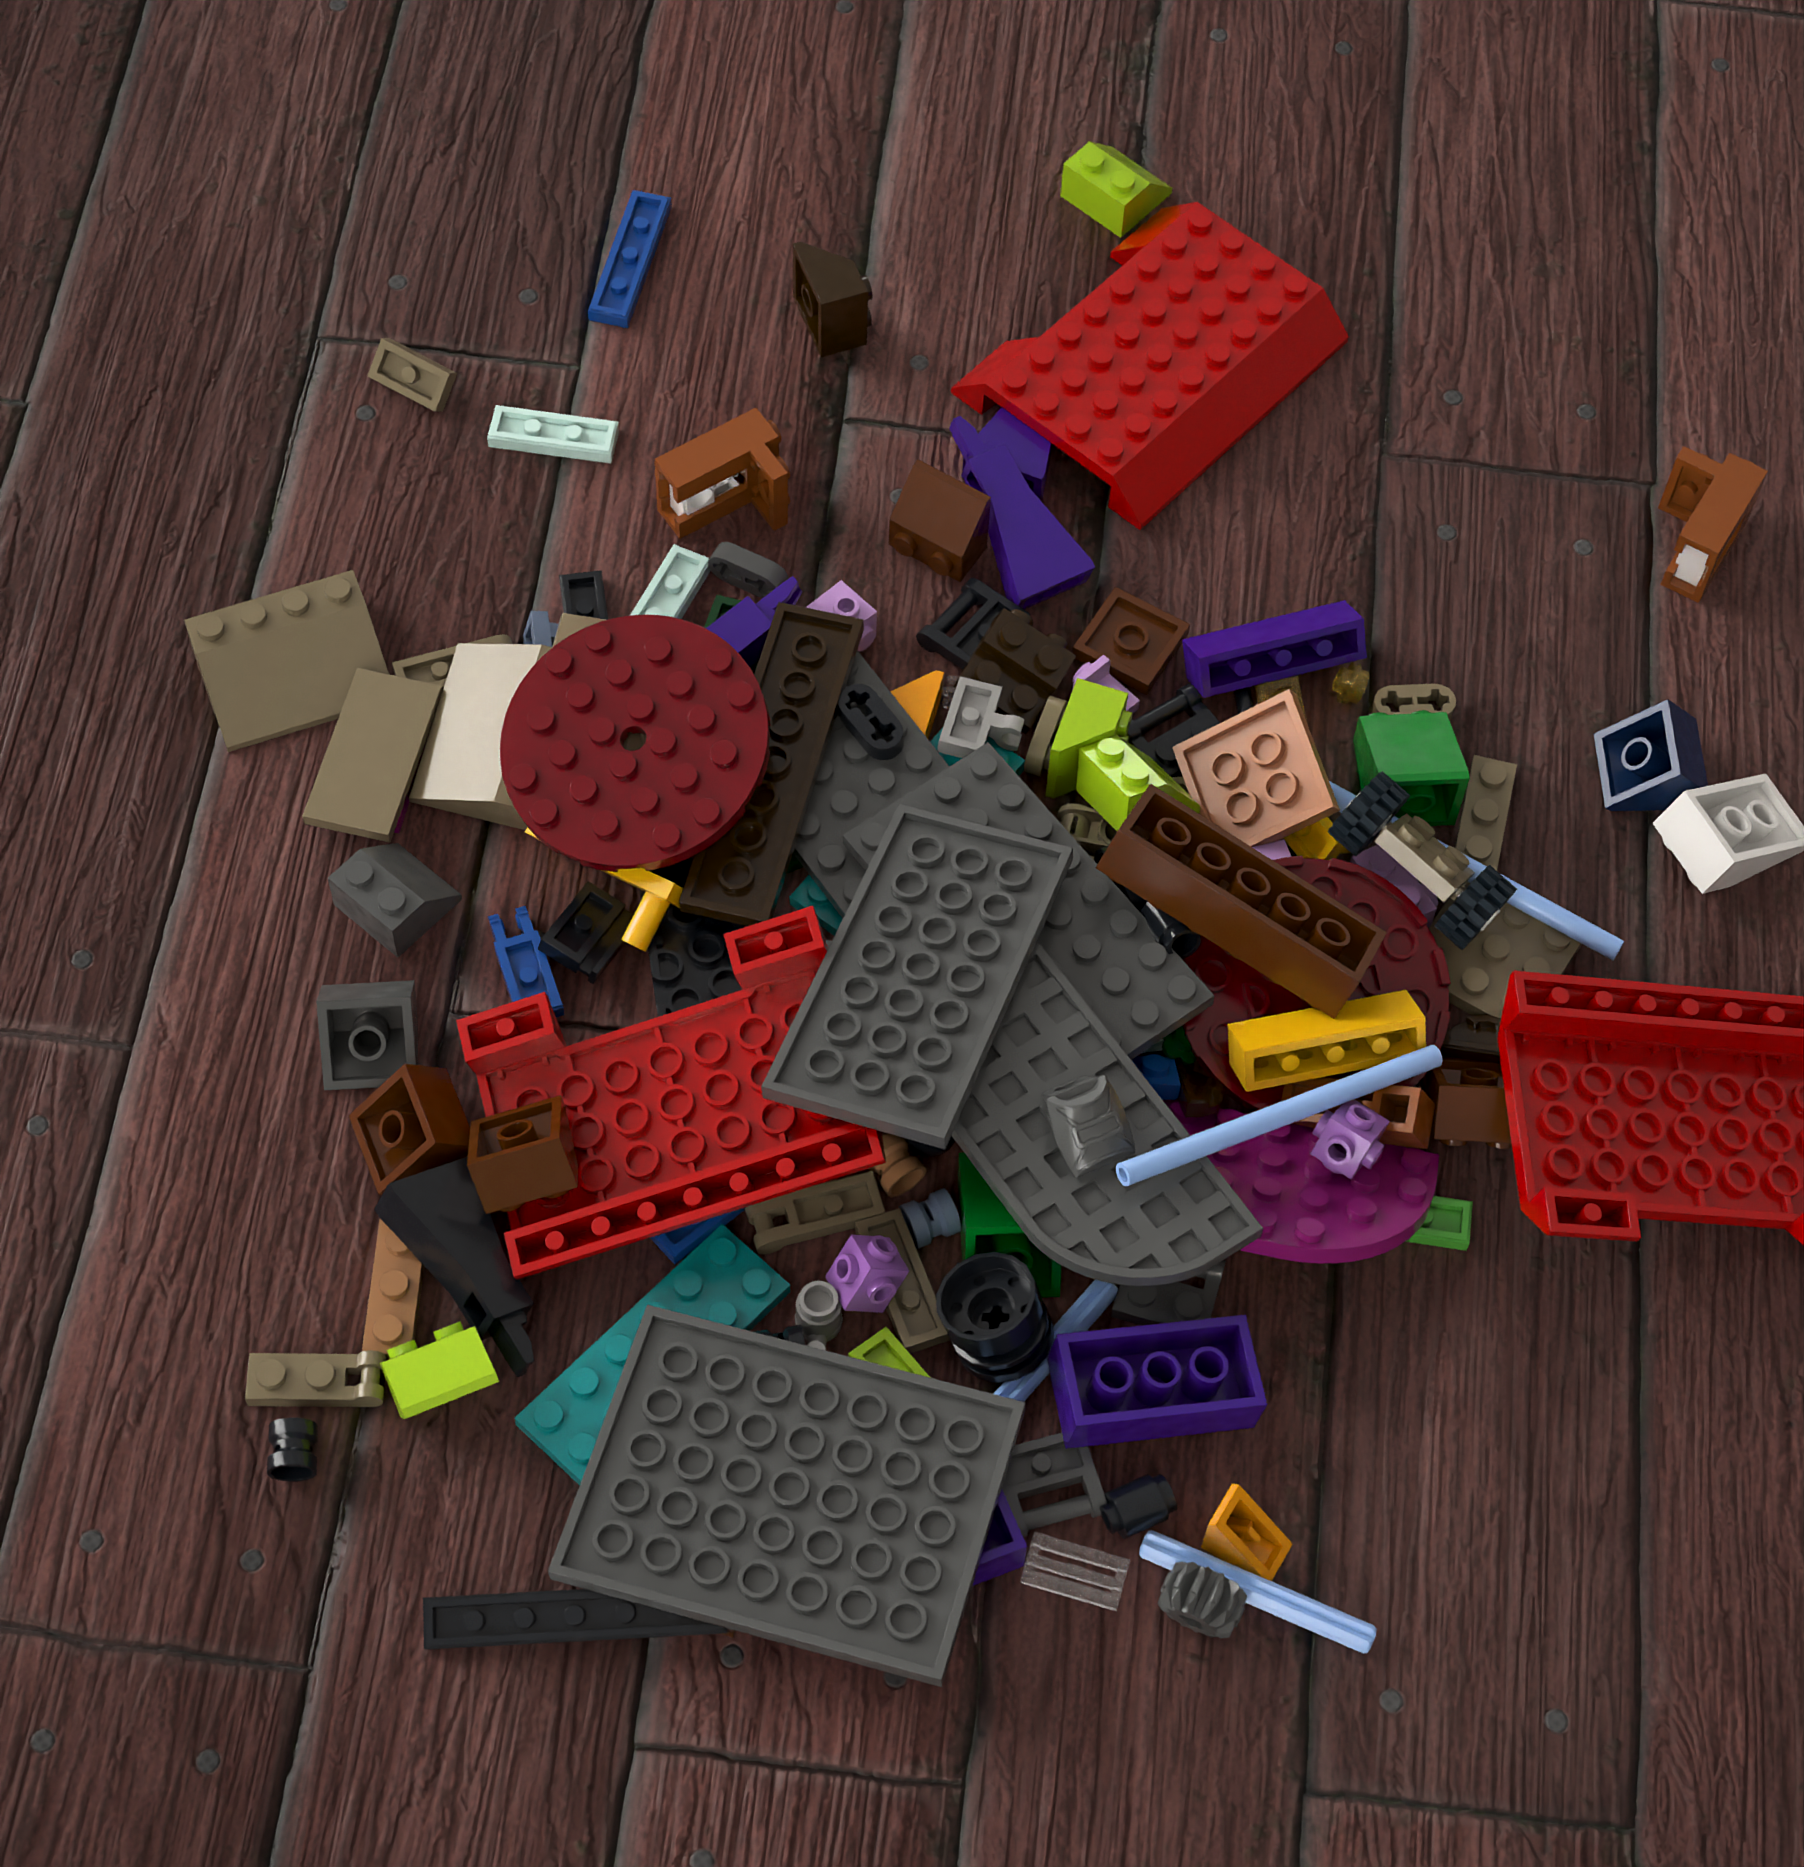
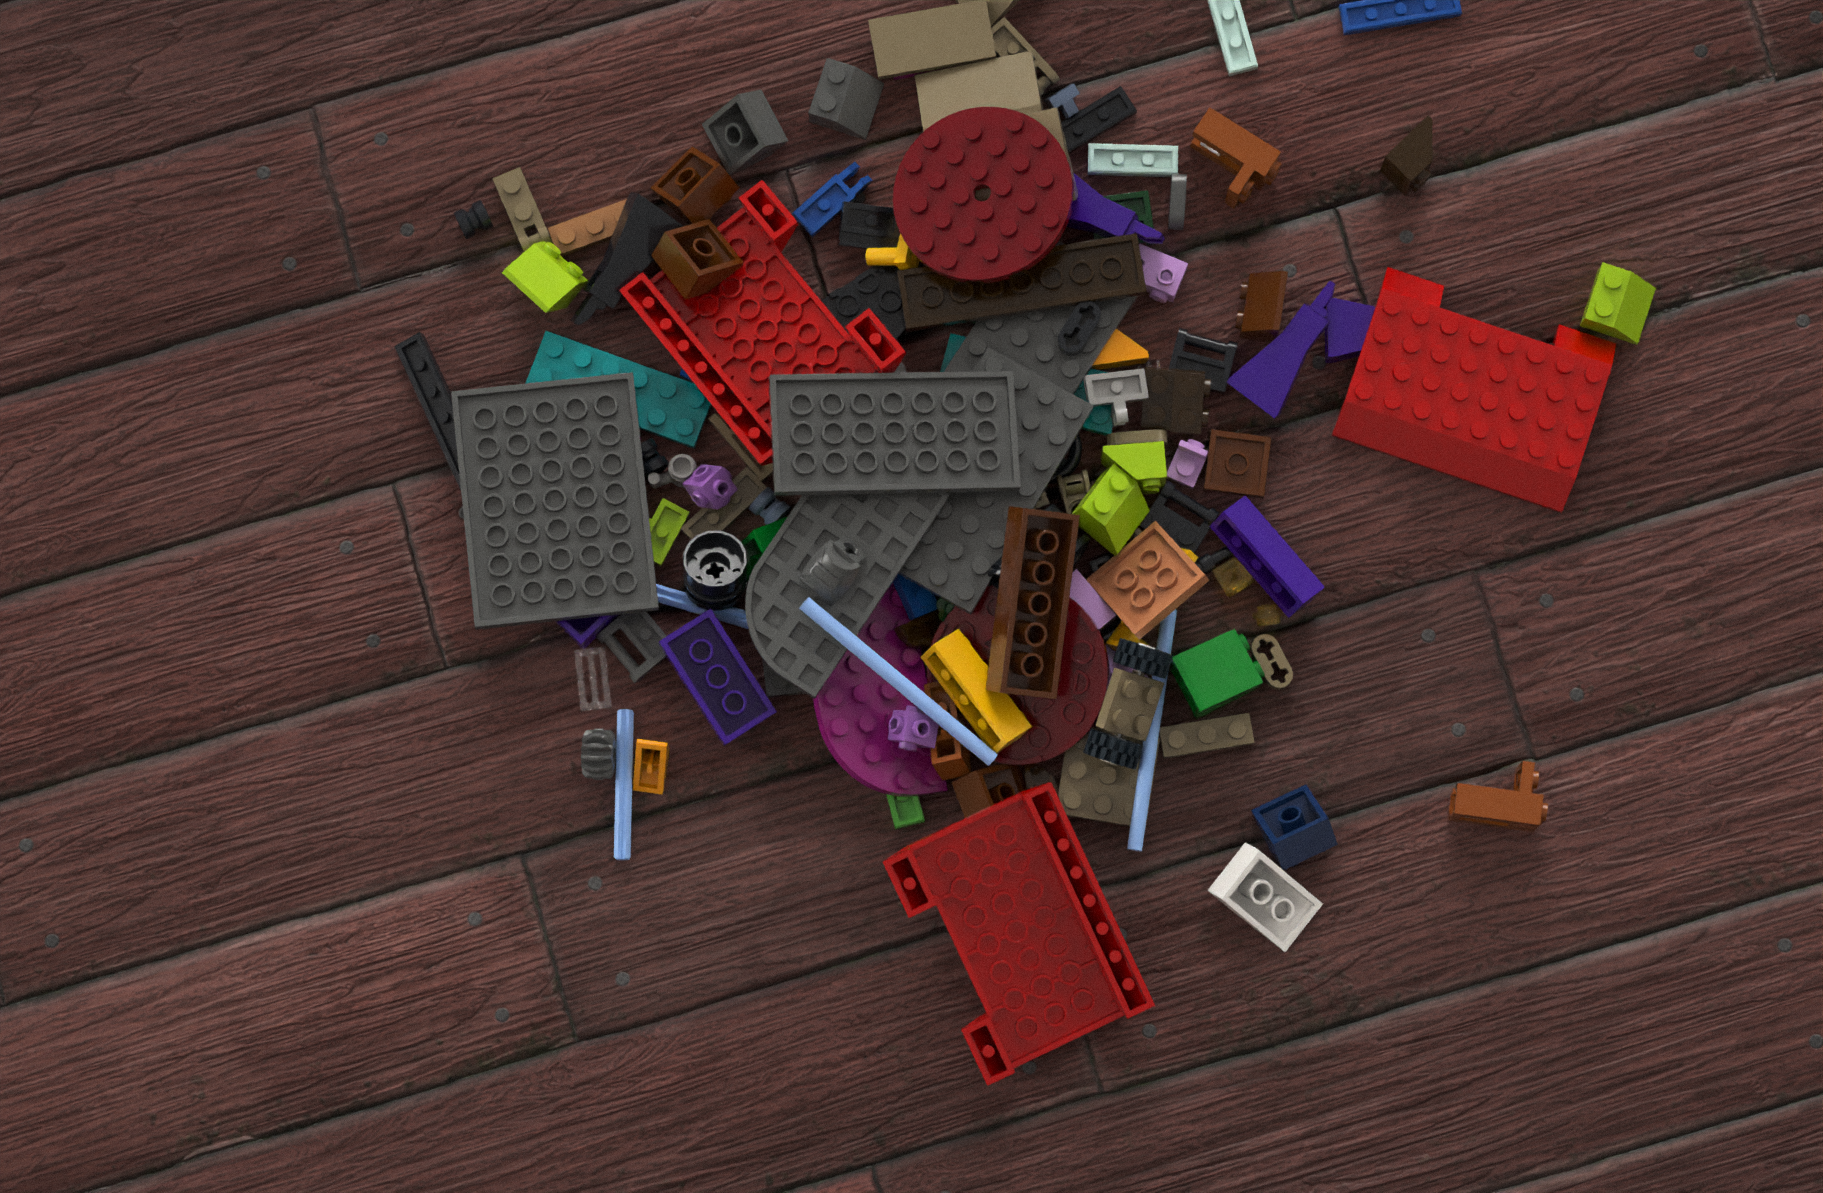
camera: 70 degrees right, 20 degrees up
(1138, 1505) = (643, 697): black brick -> none

